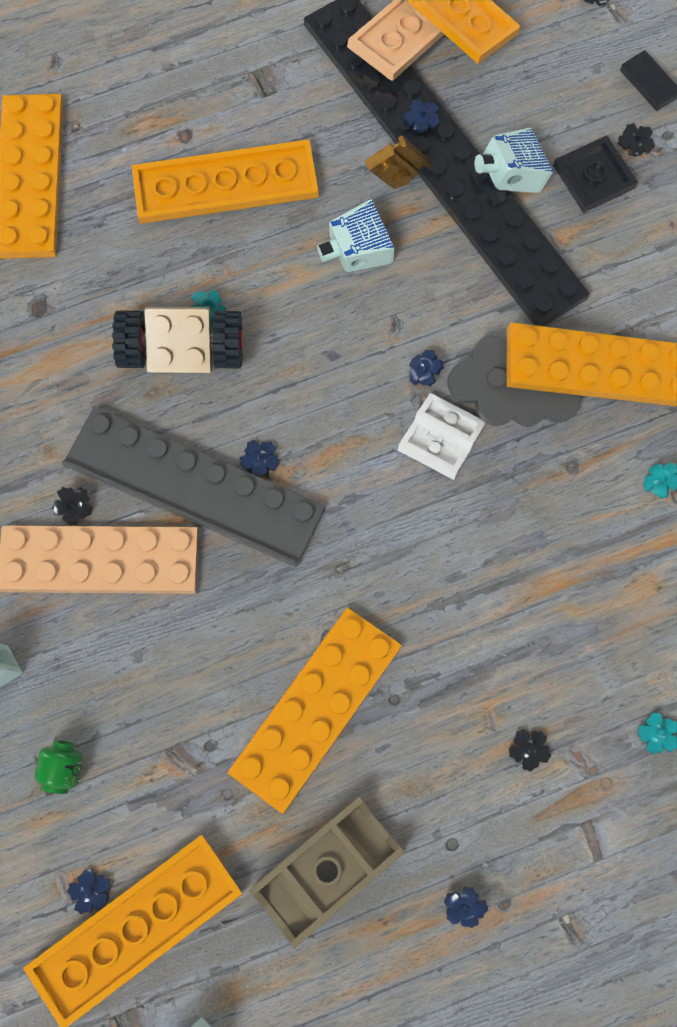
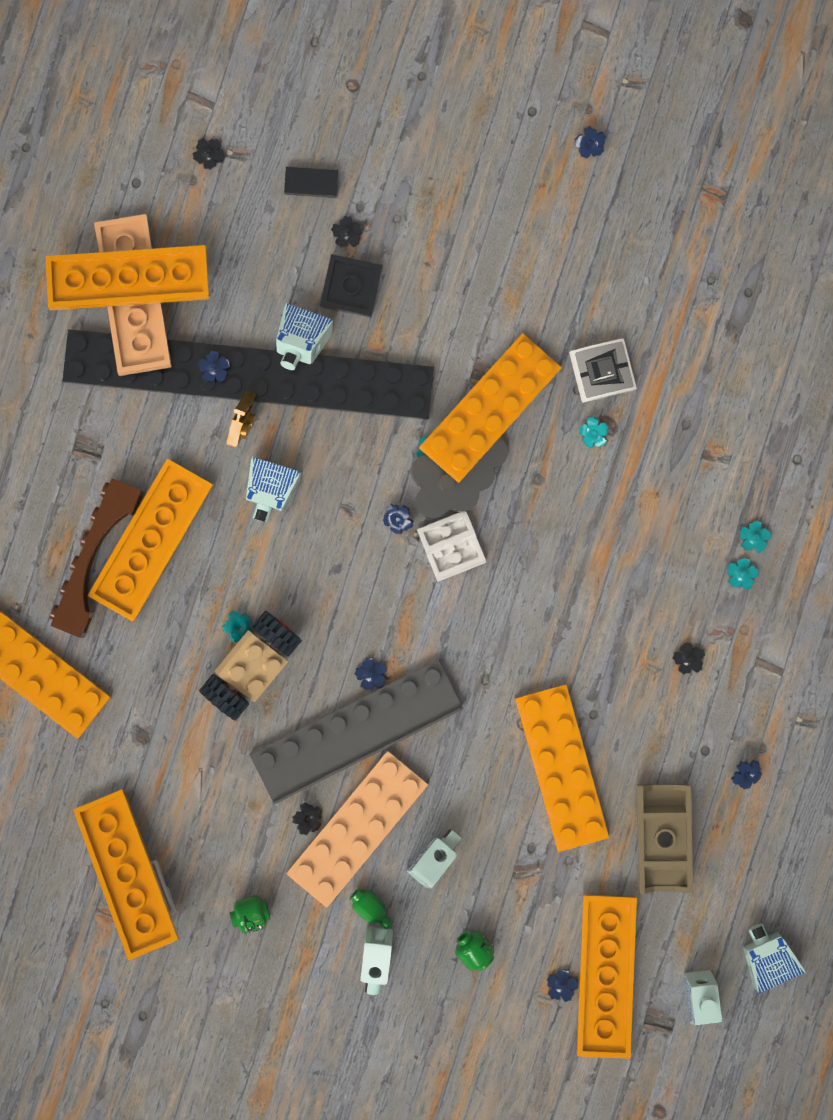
camera: 55 degrees left, 15 degrees up
(27, 631) = (370, 907): none -> green plant
(107, 649) = (426, 868): none -> light aqua torso
(111, 162) = (73, 611): none -> reddish brown arch

